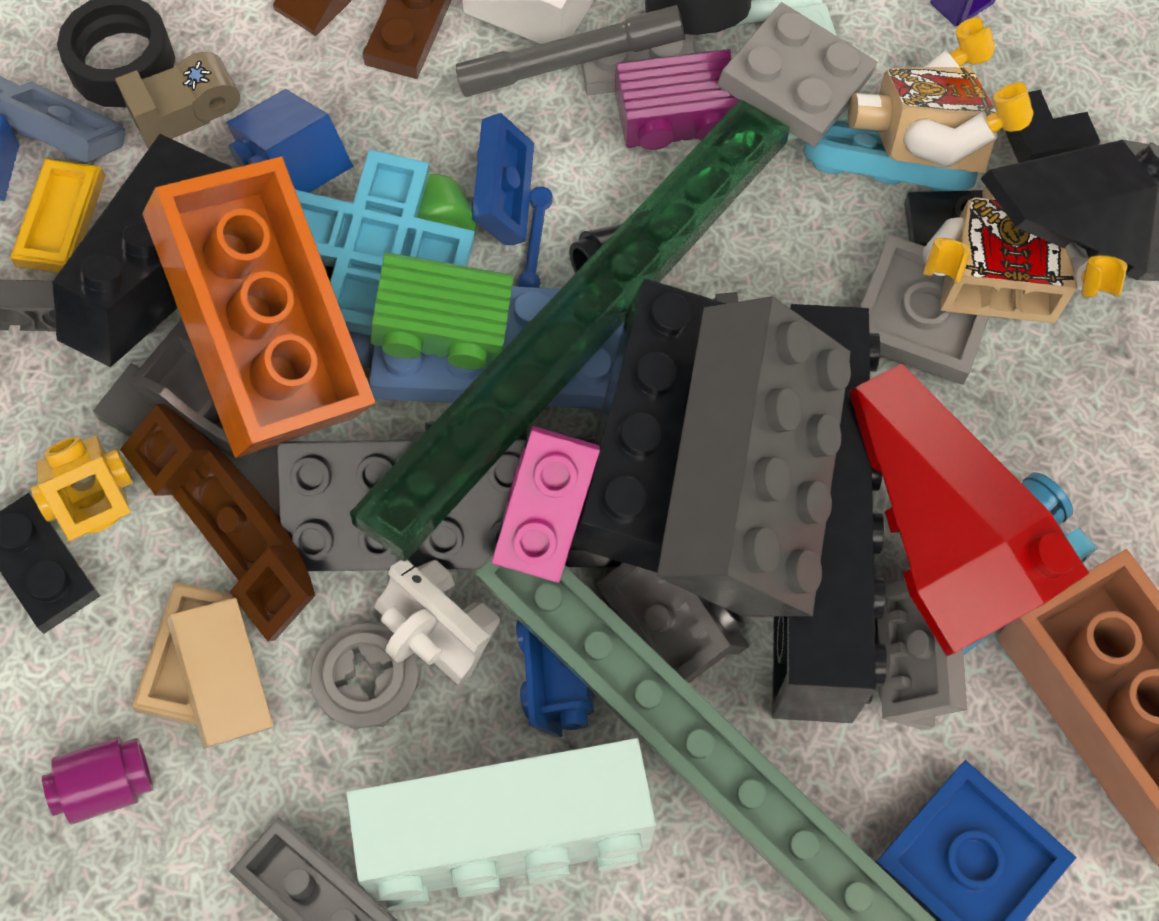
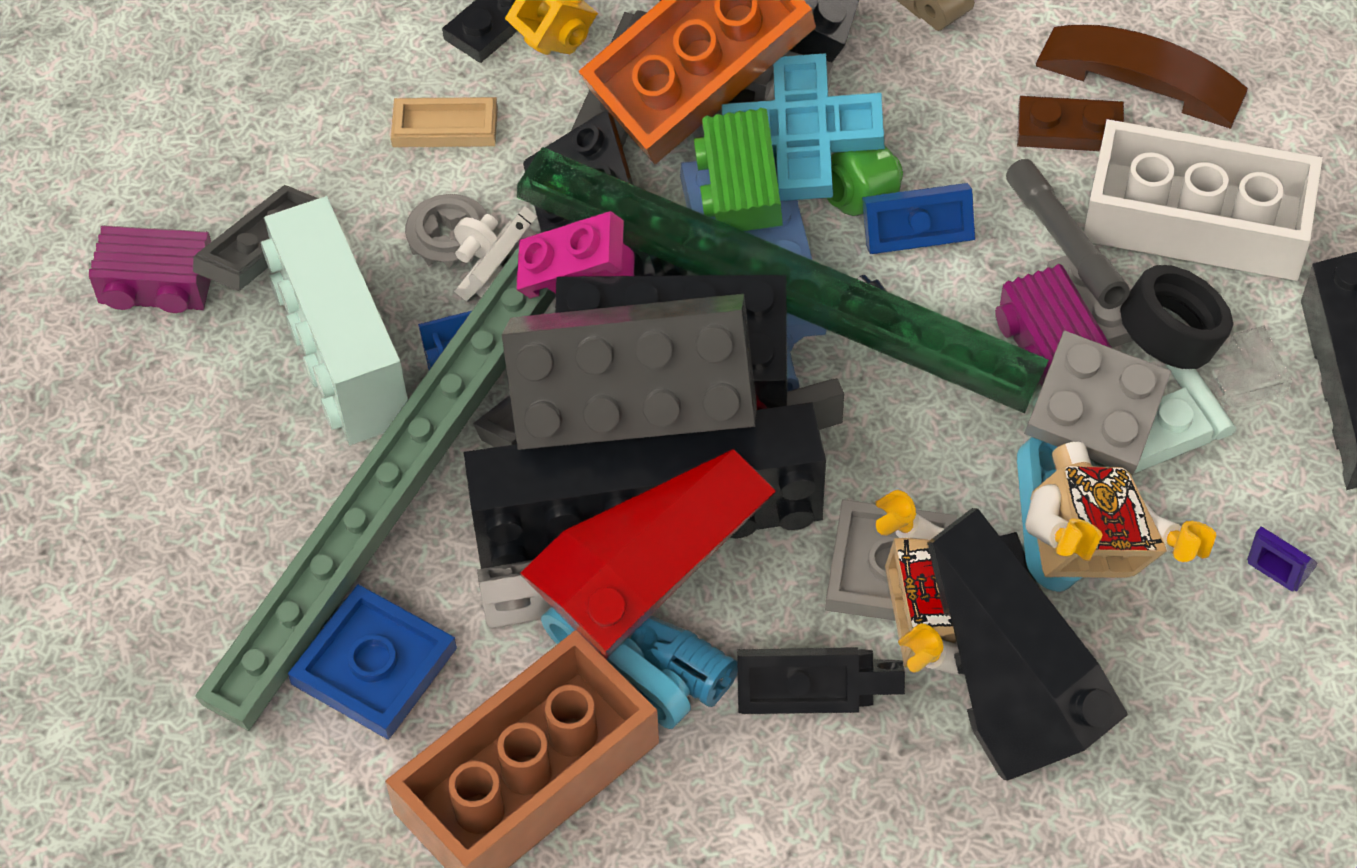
camera: 80 degrees right, 10 degrees down
(97, 779) = (335, 92): magenta brick -> none
(219, 672) = (427, 137): tan tile -> none
(228, 512) = (550, 119): reddish brown slope -> none
(297, 132) = (889, 56): blue brick -> none
(540, 200) = (919, 258): blue hinge -> none
(1051, 135) = (1123, 644): black piece -> none
(1058, 405) = (814, 680): none -> black hinge

